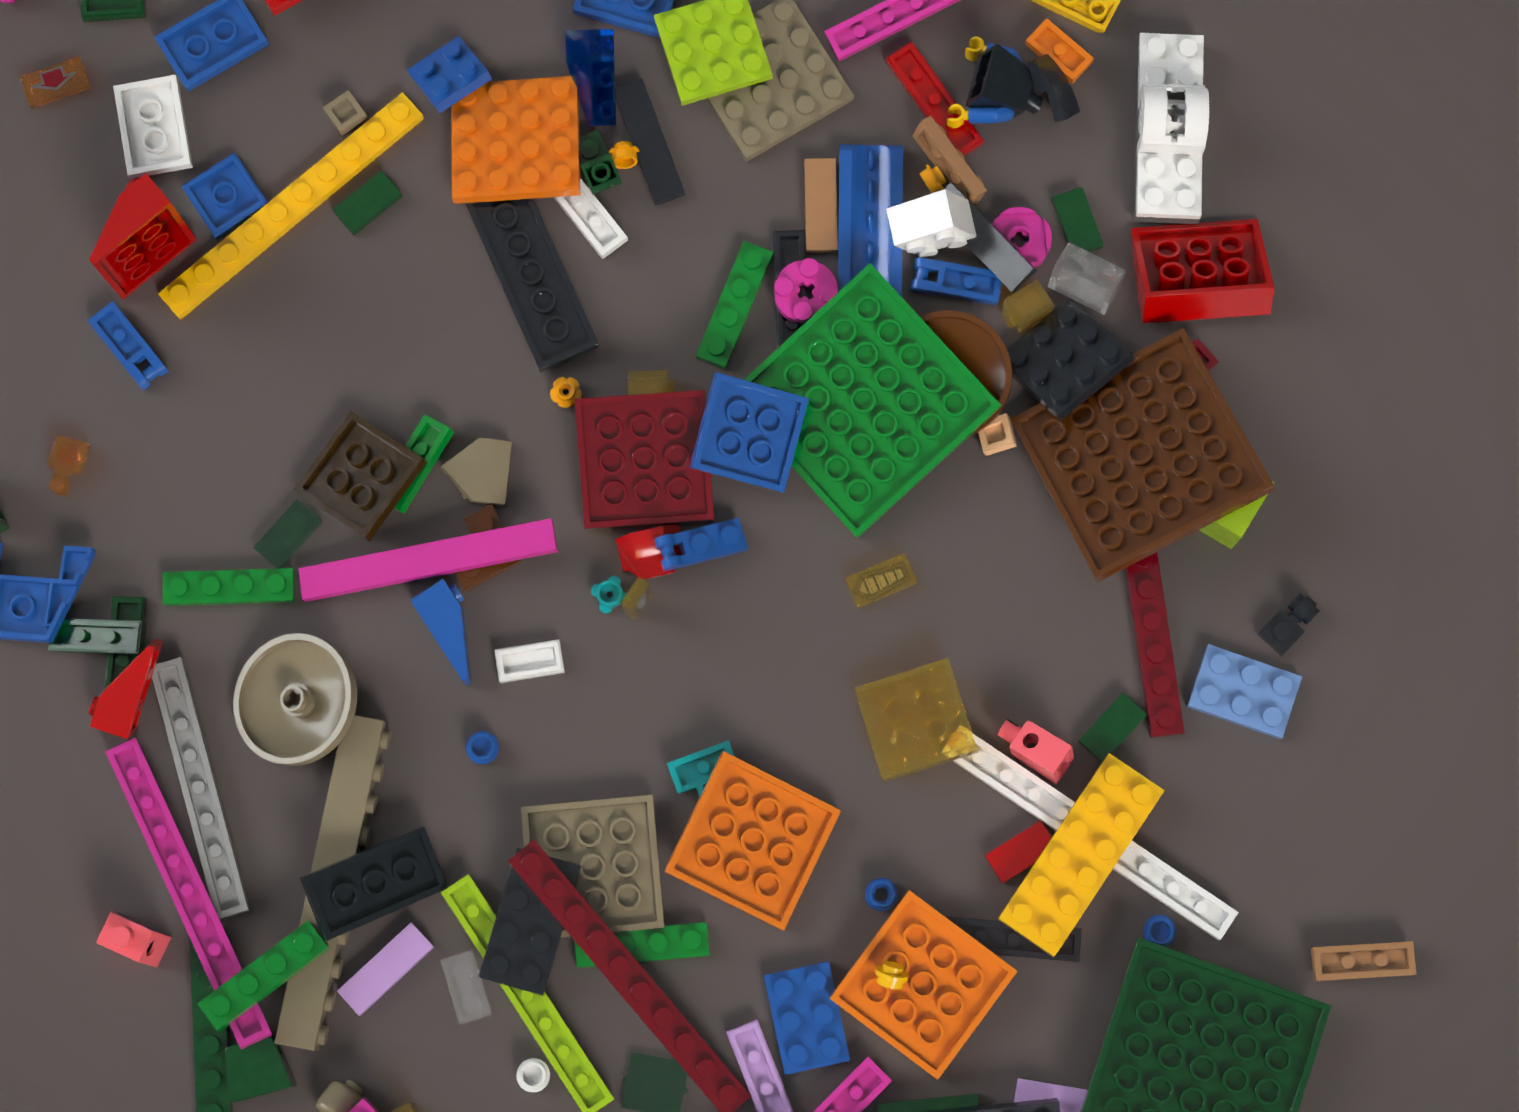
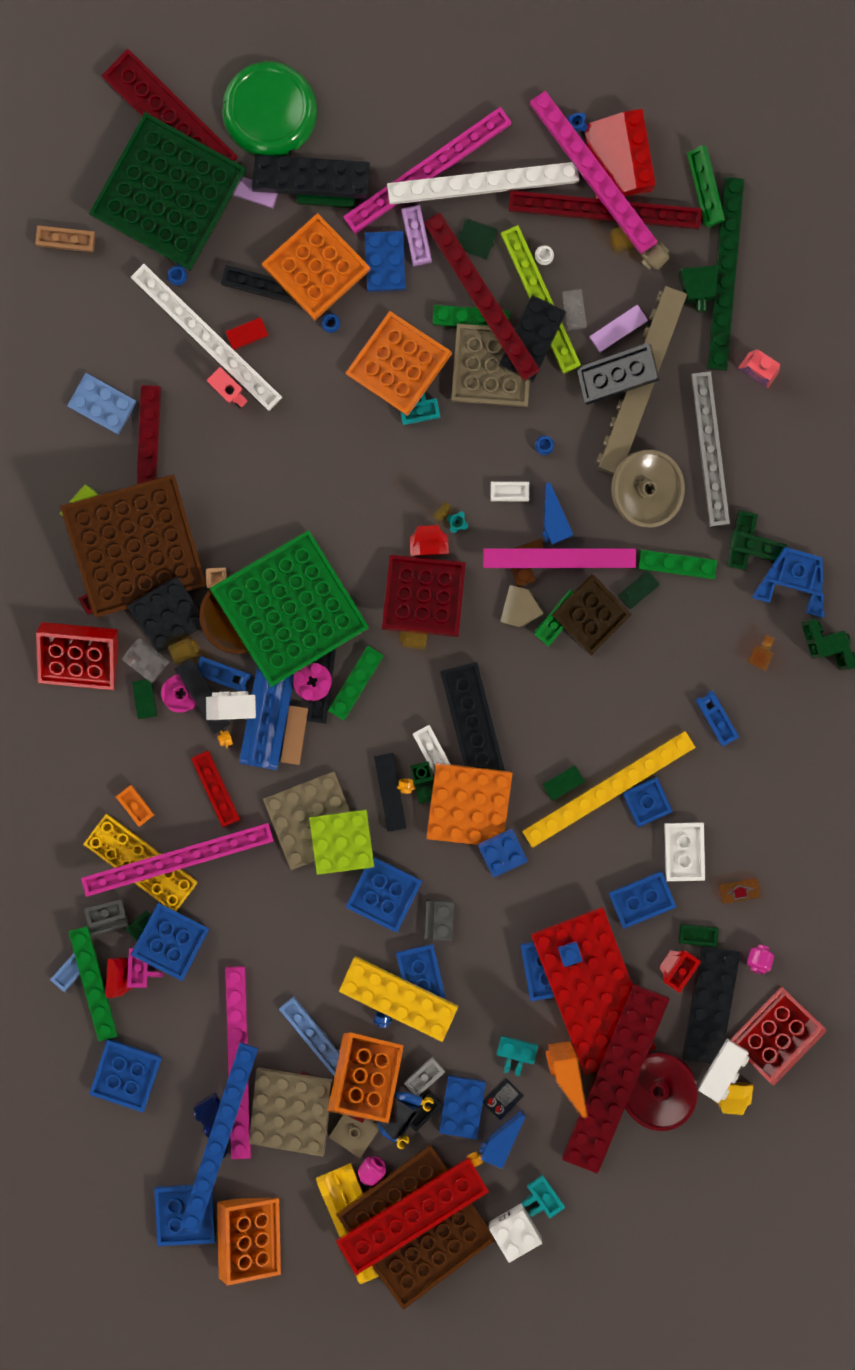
camera: 175 degrees left, 10 degrees up
(121, 703) = (747, 506): red slope -> none
(139, 237) = (699, 778): red slope -> none
(182, 880) = (724, 387): dark pink plate -> none
(263, 976) = (688, 329): green plate -> none
(345, 113) = (568, 840): dark tan plate -> none
(561, 384) = (463, 641): light orange plate -> none
(593, 72) = (416, 840): clear blue slope -> none
(701, 544) = (398, 540): blue plate -> none
(749, 432) = (360, 598): blue plate -> none
(880, 580) = (299, 503): clear yellow tile -> none
(891, 975) = (332, 271): yellow plate -> none
(916, 720) = (293, 416): clear yellow plate -> none
(950, 161) = (212, 748): medium nougat plate -> none
(998, 87) = (175, 787): black torso -> none
(1050, 78) = (143, 786): black slope -> none
(1081, 855) = (213, 323): yellow plate -> none
(1112, 727) = (181, 395): dark green tile -> none
(1170, 128) = (78, 746): white piece -> none
(1283, 630) = (72, 434): black plate -> none

